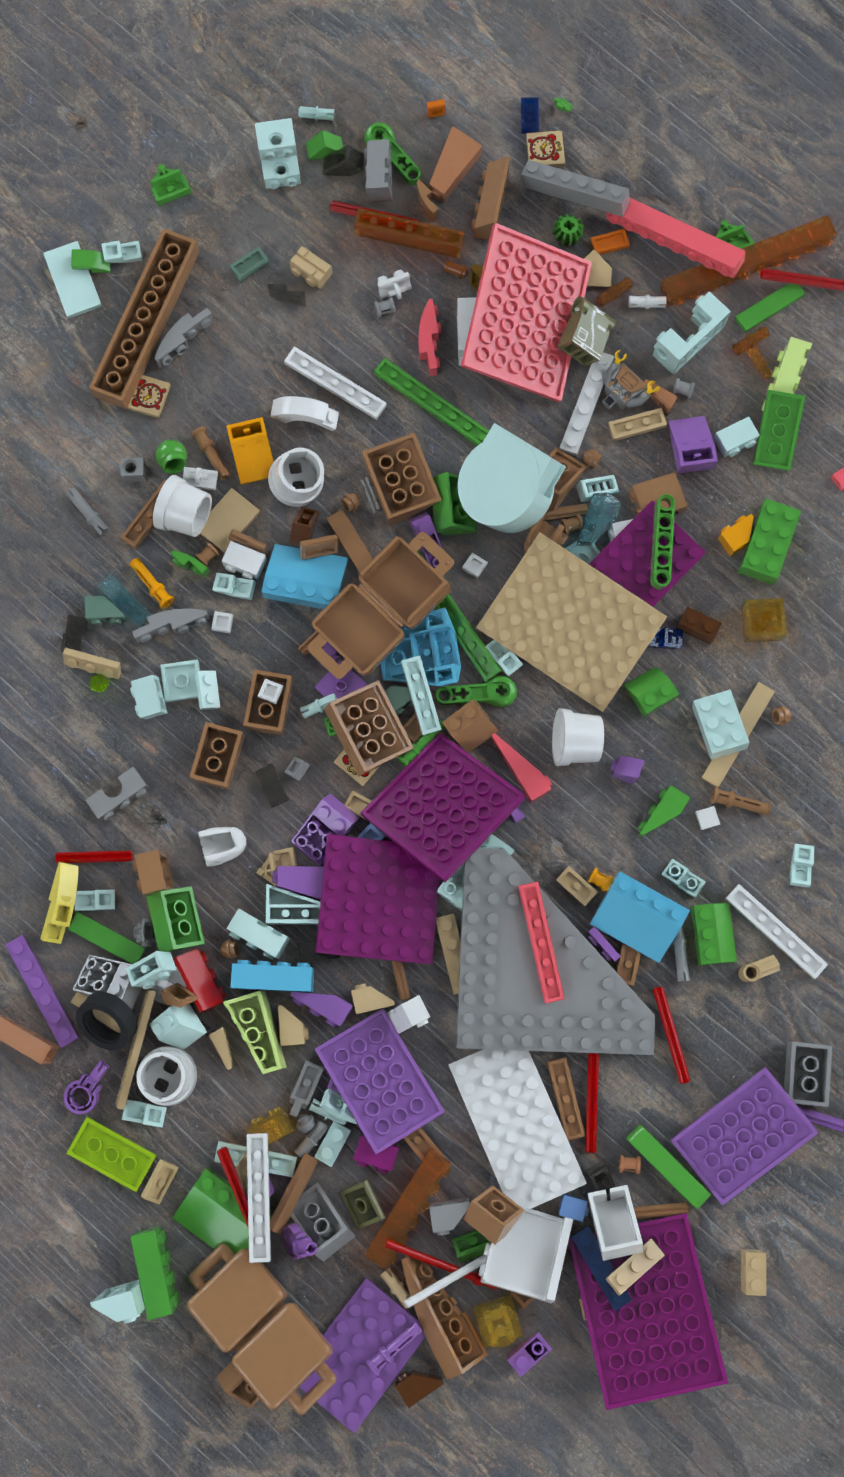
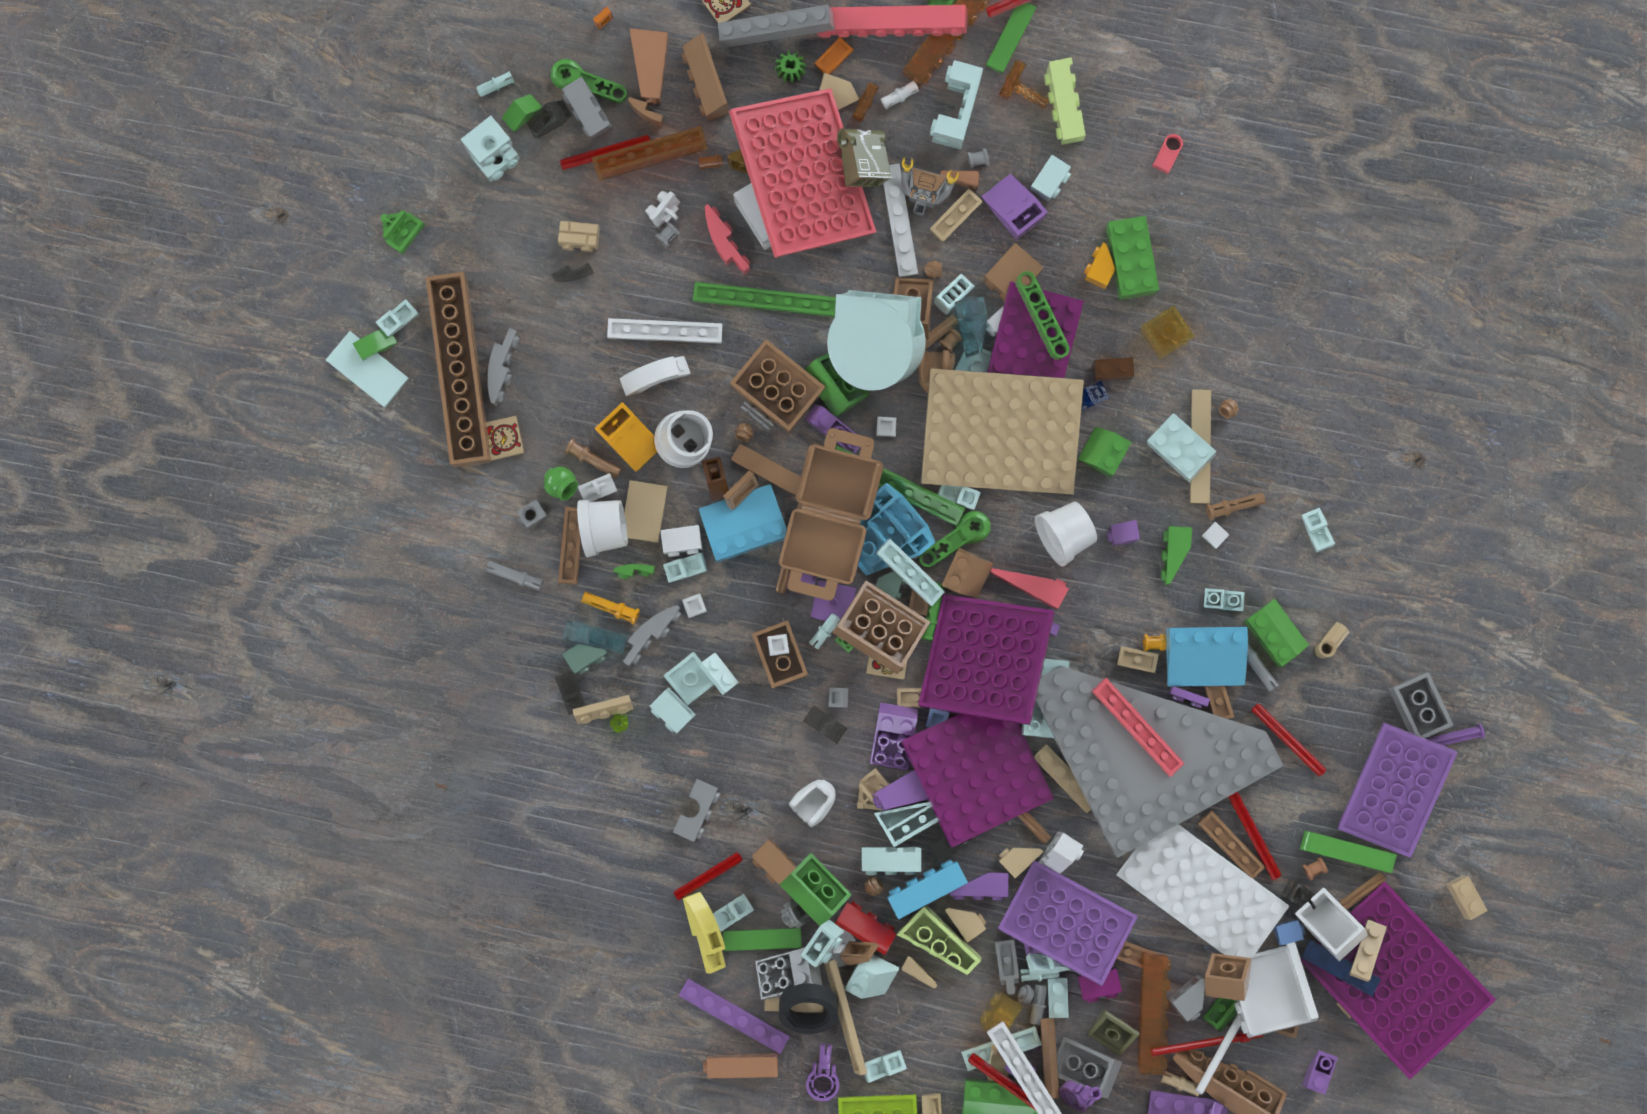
camera: 30 degrees left, 5 degrees up
(180, 1083) = (868, 1025): white piece -> none
(207, 554) = (645, 553): medium nougat bush -> none
(217, 756) = (763, 727): medium nougat brick -> none
(247, 541) = (674, 521): medium nougat axle -> none
(249, 264) = (520, 263): sand green plate -> none
(498, 1322) = (1280, 1061): clear yellow piece -> none
(776, 931) = (1327, 600): white plate -> none
(779, 430) = (1084, 151): bright green tile -> none

